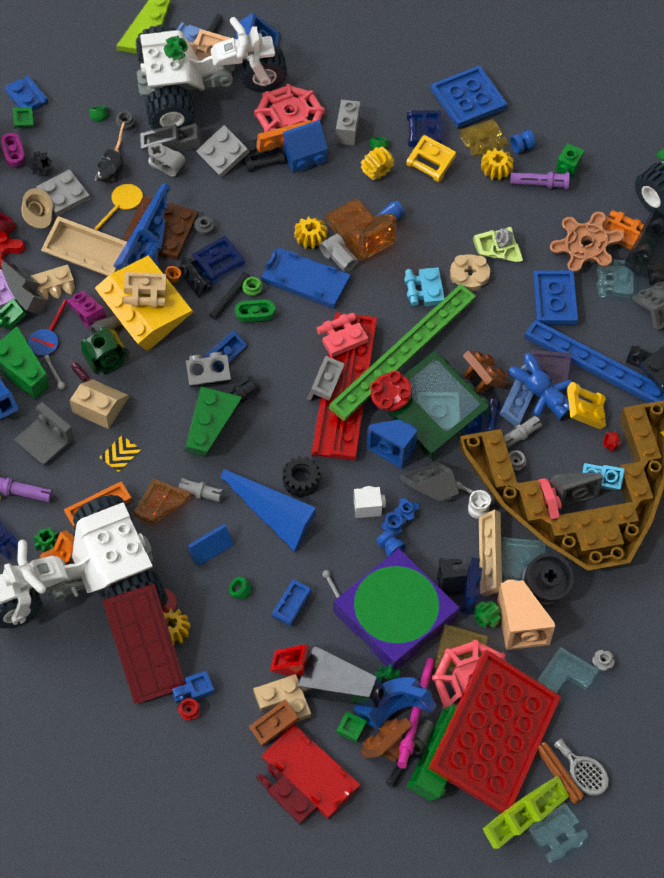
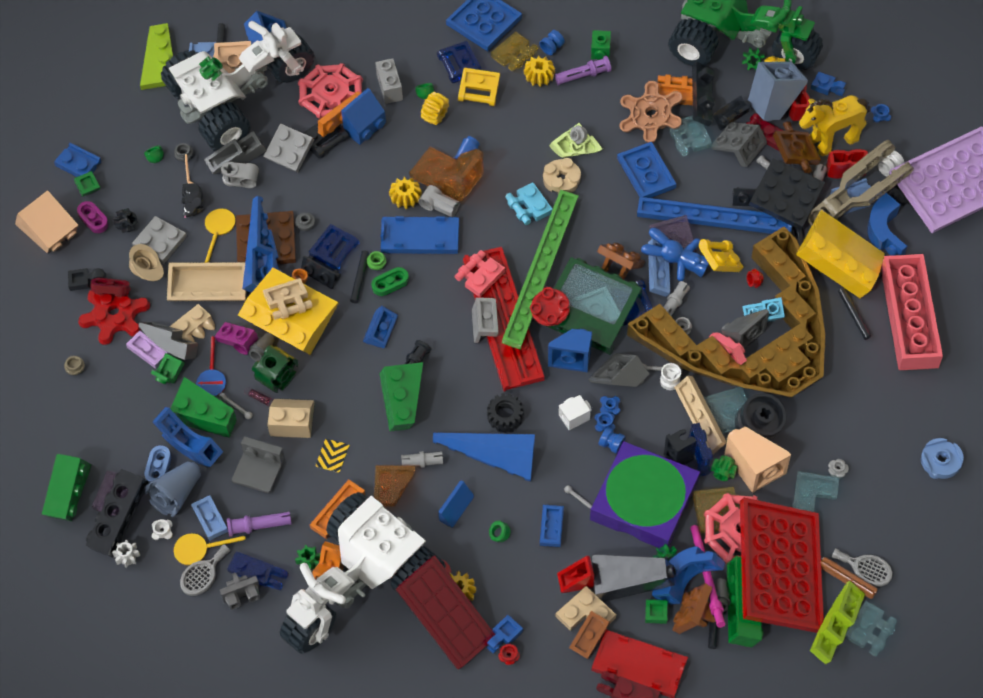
camera: 20 degrees left, 0 degrees up
(208, 375) = (378, 353): light grey brick -> none

